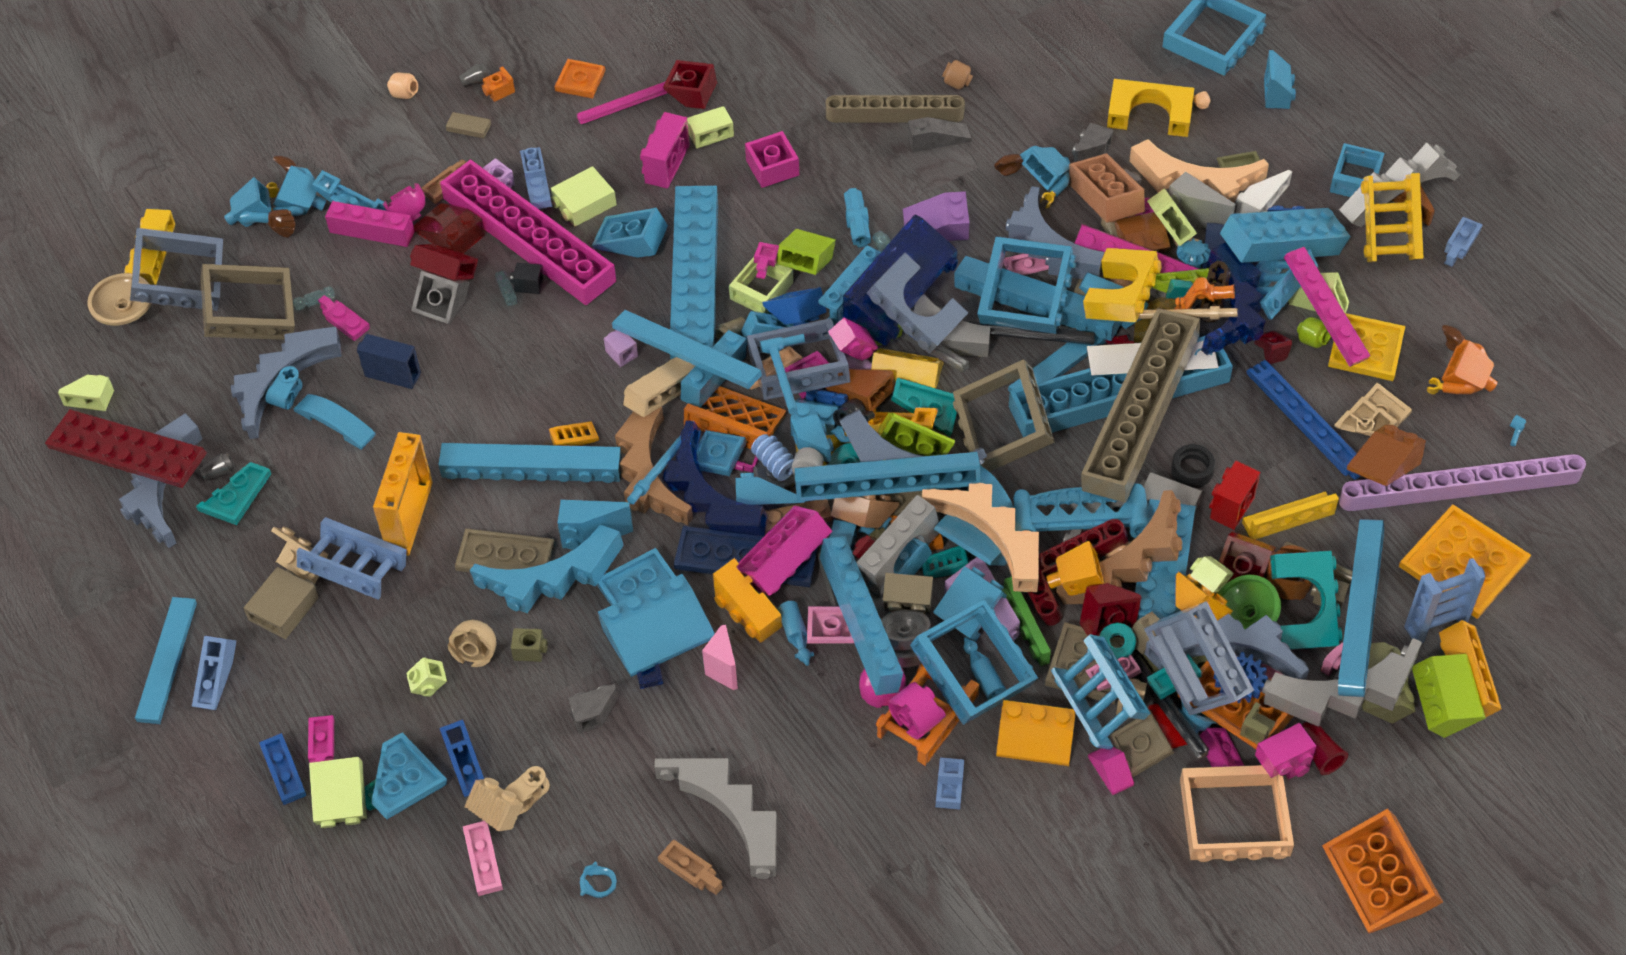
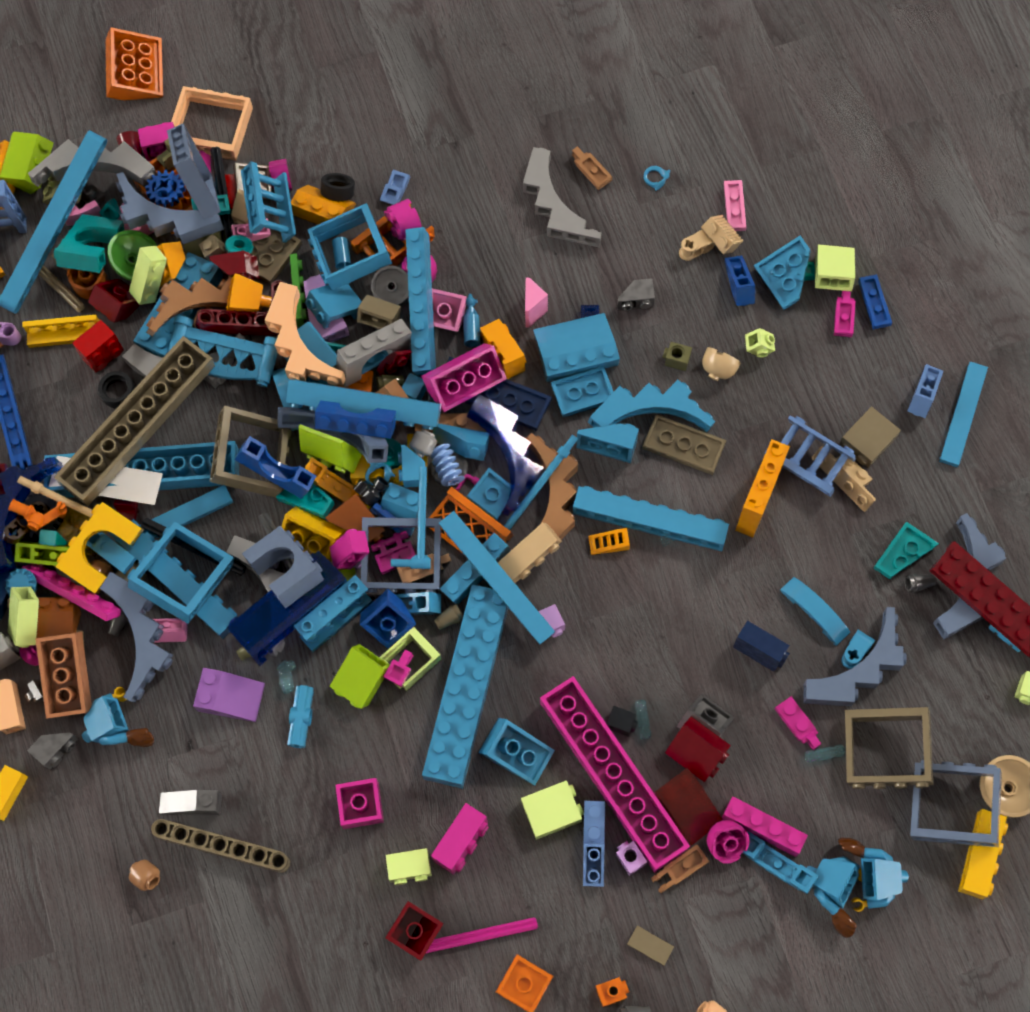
camera: 165 degrees left, 15 degrees up
(858, 446) = (374, 423): none -> blue arch
(988, 391) = (256, 457): none -> blue arch
(1024, 773) = (337, 186): none -> black tyre
(1313, 665) = (111, 209): none -> teal slope

